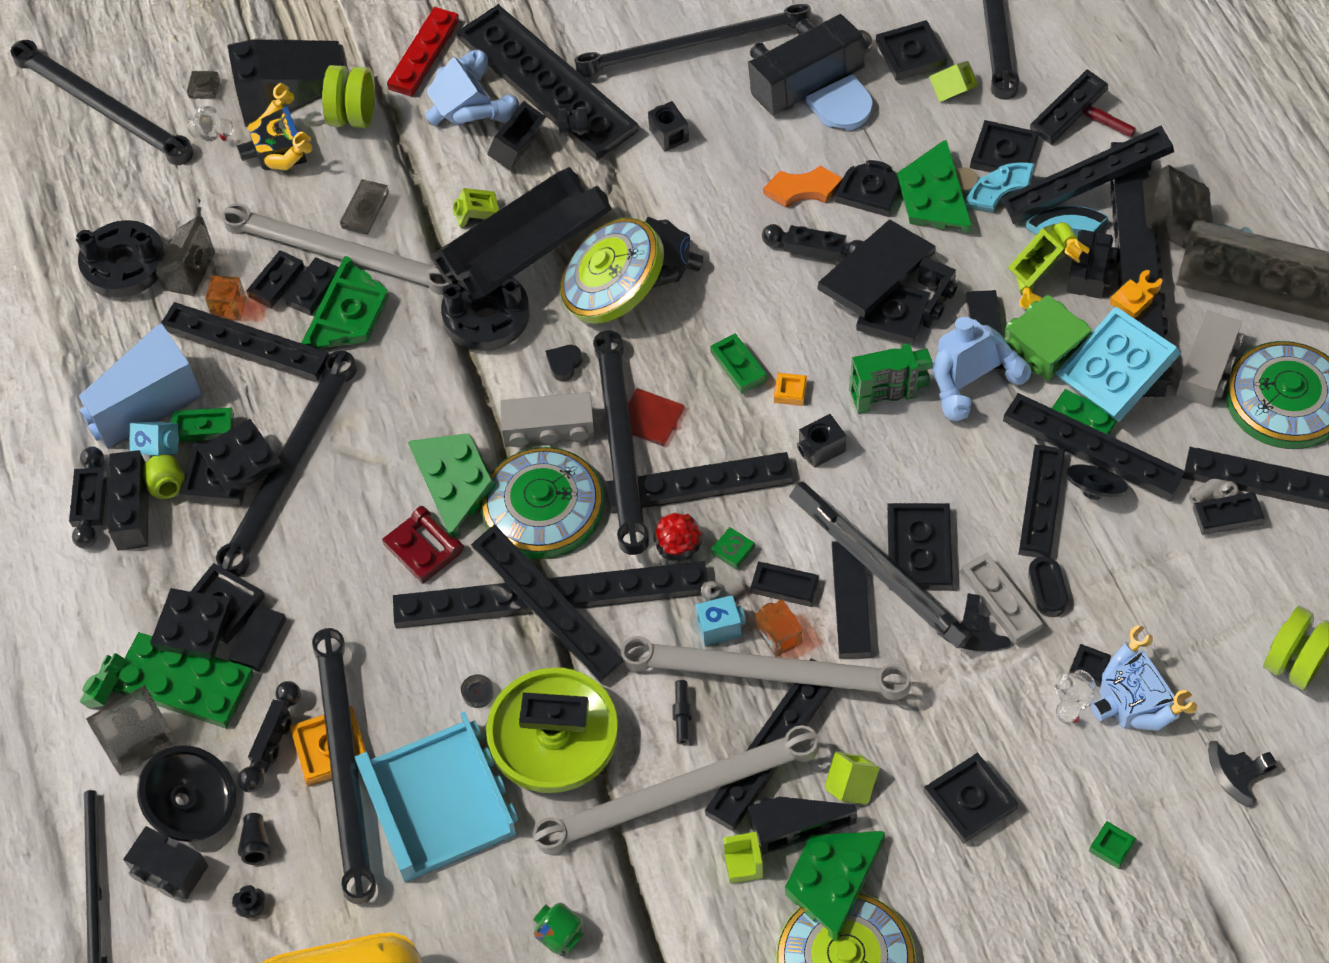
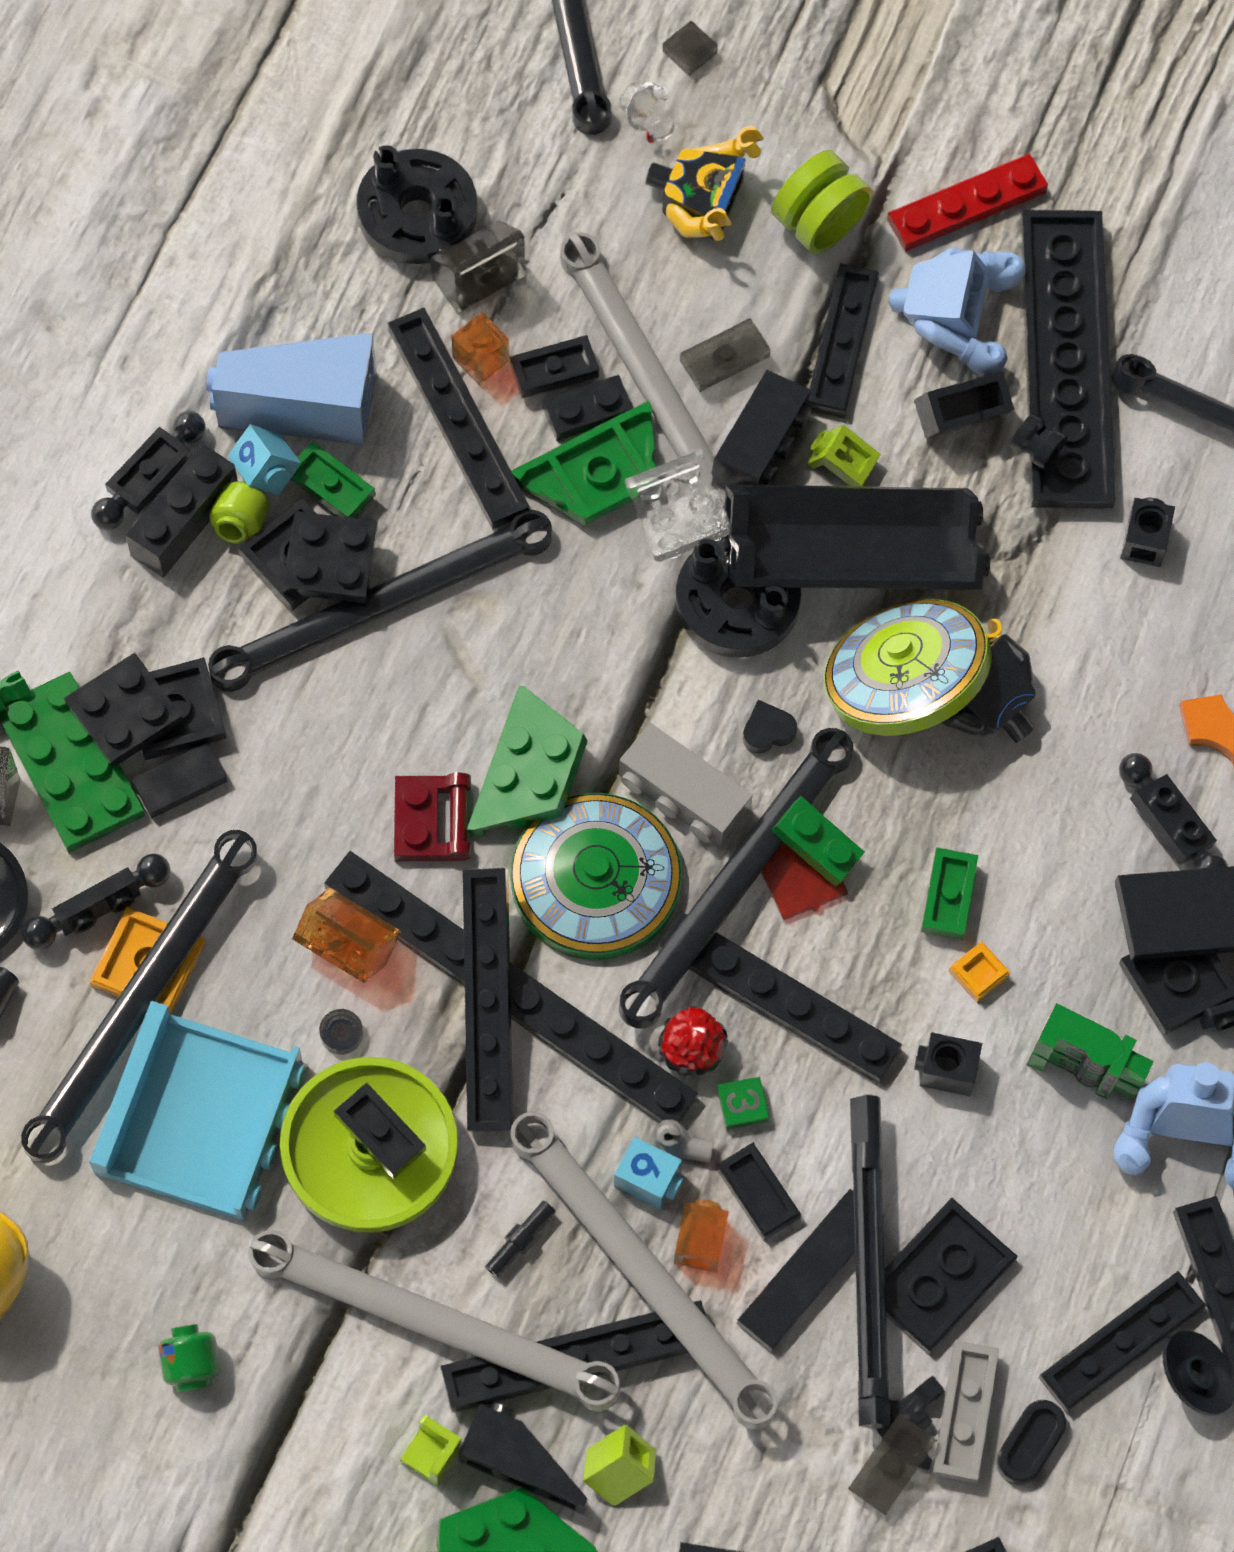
camera: 35 degrees right, 10 degrees up
(265, 63) = (790, 97): black wedge -> none
(412, 288) = (678, 505): none -> clear bracket
(420, 158) = (842, 340): none -> black tile
(423, 223) = (763, 432): none -> black brick
(434, 636) = (346, 935): none -> clear orange brick
(646, 390) = (818, 841): none -> green plate
(991, 654) = (892, 1464): none -> clear smoke plate

